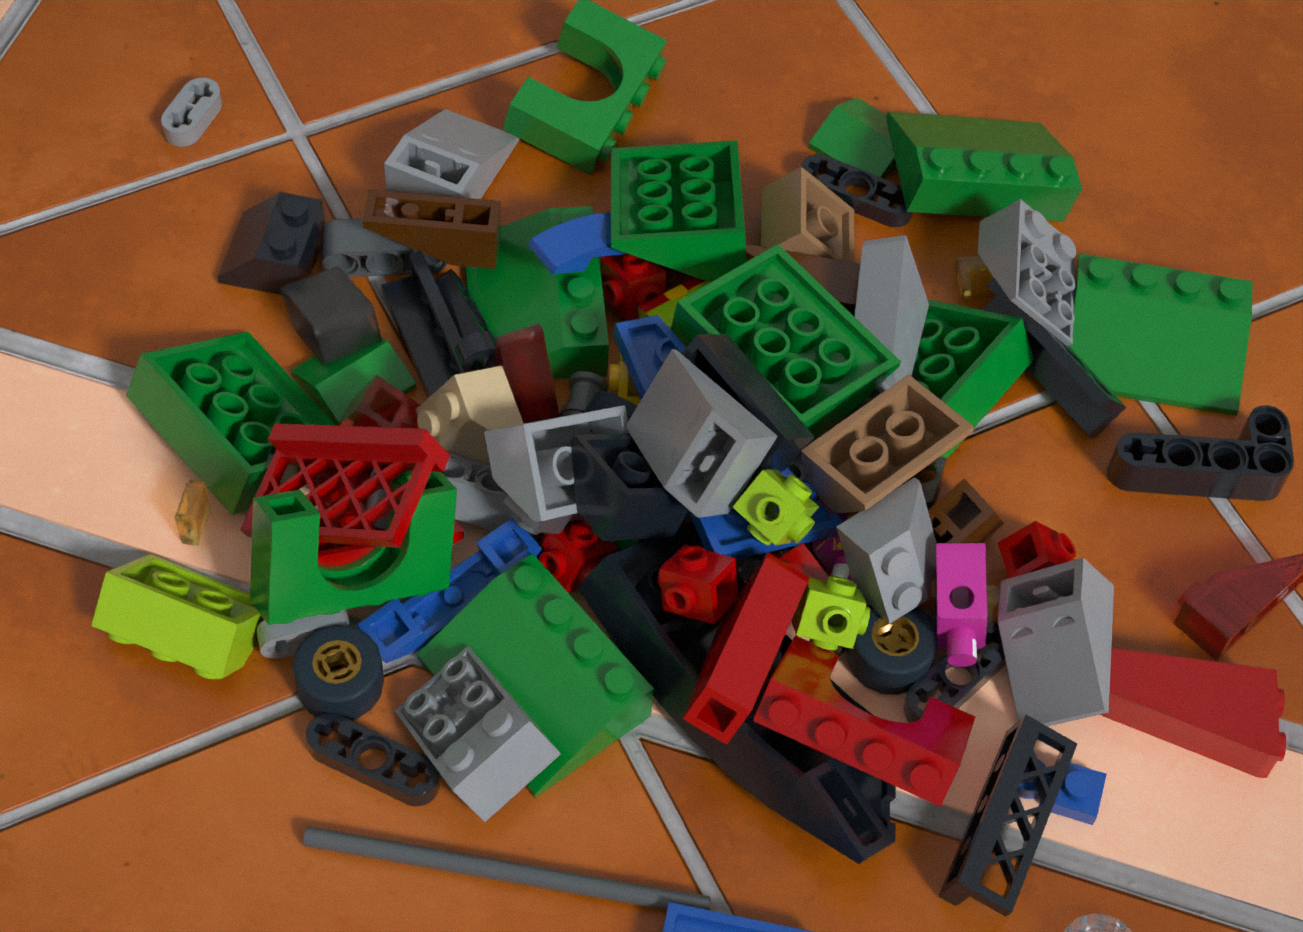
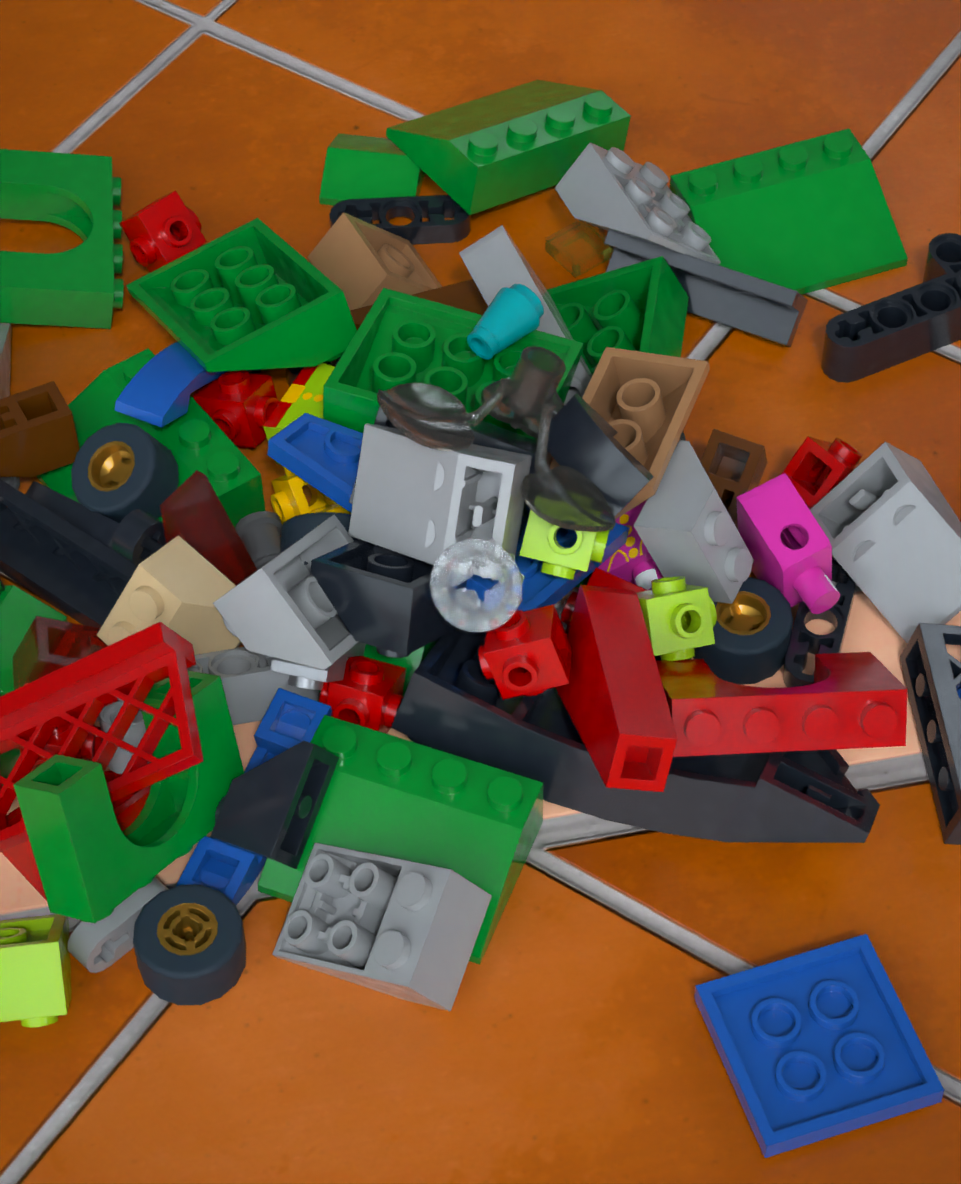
camera: 25 degrees left, 5 degrees down
(334, 756) = (238, 999): black beam -> none
(453, 604) = (276, 804): none -> black slope
(500, 869) = (488, 1054): dark grey piece -> none
(510, 295) = (123, 472): none -> black wheel
(664, 526) = (462, 606): none -> clear gear
(665, 105) = (163, 232): none -> red brick
(816, 391) = (525, 402): none -> clear smoke plant
(828, 460) = (588, 445): none -> black slope
(846, 316) = (506, 320): none -> teal cone

